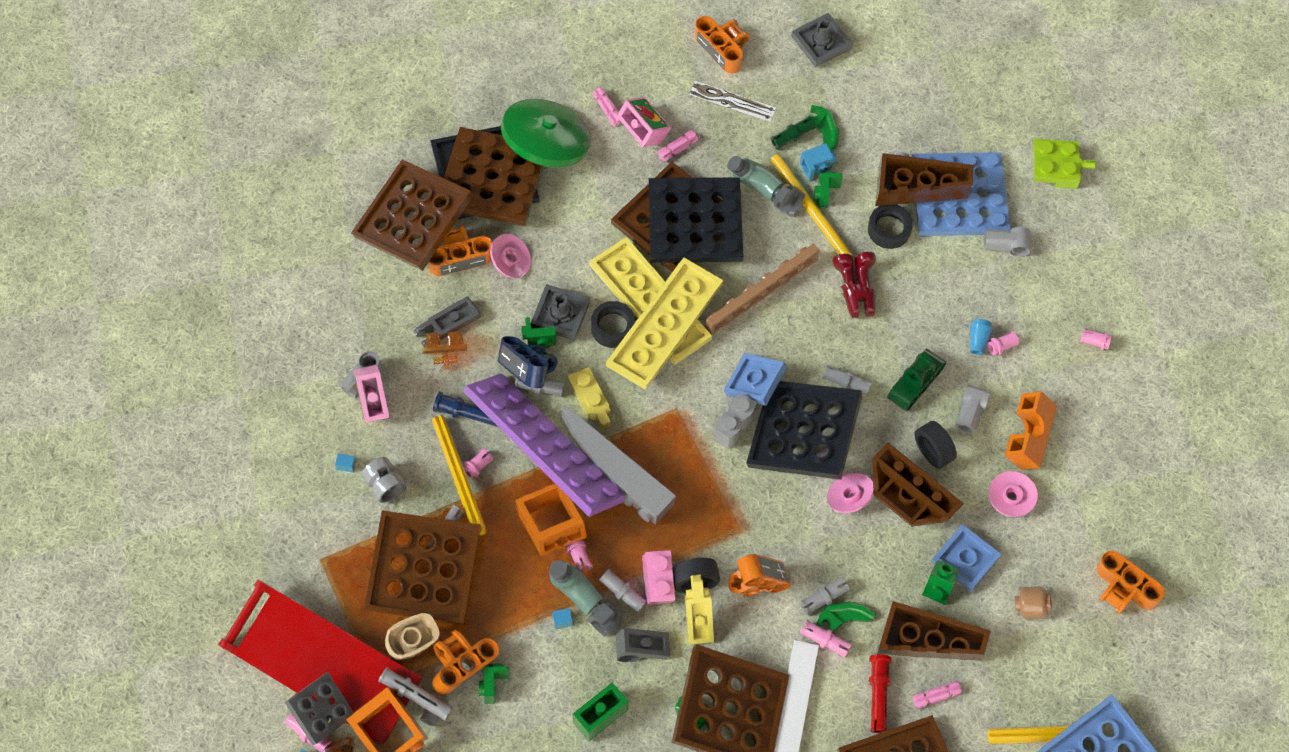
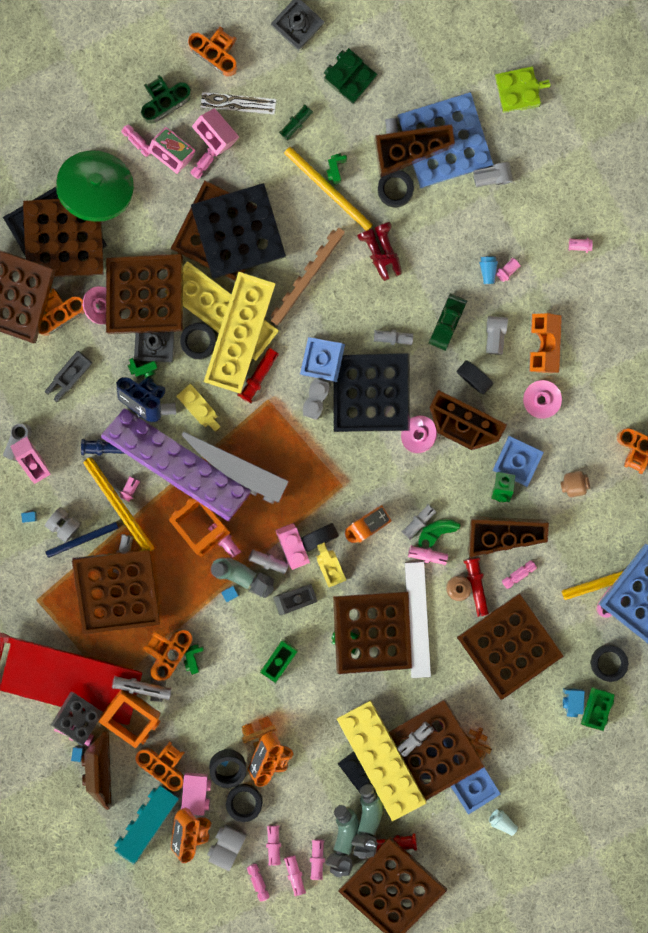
camera: 15 degrees left, 25 degrees up
(400, 506) = (82, 539): none -> dark blue bar
(411, 636) = (126, 647): tan piece -> none
(455, 344) = (75, 403): clear orange hips -> none
(573, 266) = (173, 301): none -> reddish brown piece
(647, 66) = (159, 92): none -> dark green beam
(664, 386) = (253, 383): none -> red pin
(699, 116) = (215, 131): none -> bright pink brick
(766, 183) = (278, 174): piece -> none
(817, 161) = (323, 145): dark azure brick -> none
(827, 125) = (323, 107): green piece -> none
(855, 686) = (451, 588): none -> medium nougat head
(866, 103) = (349, 75): none -> dark green plate

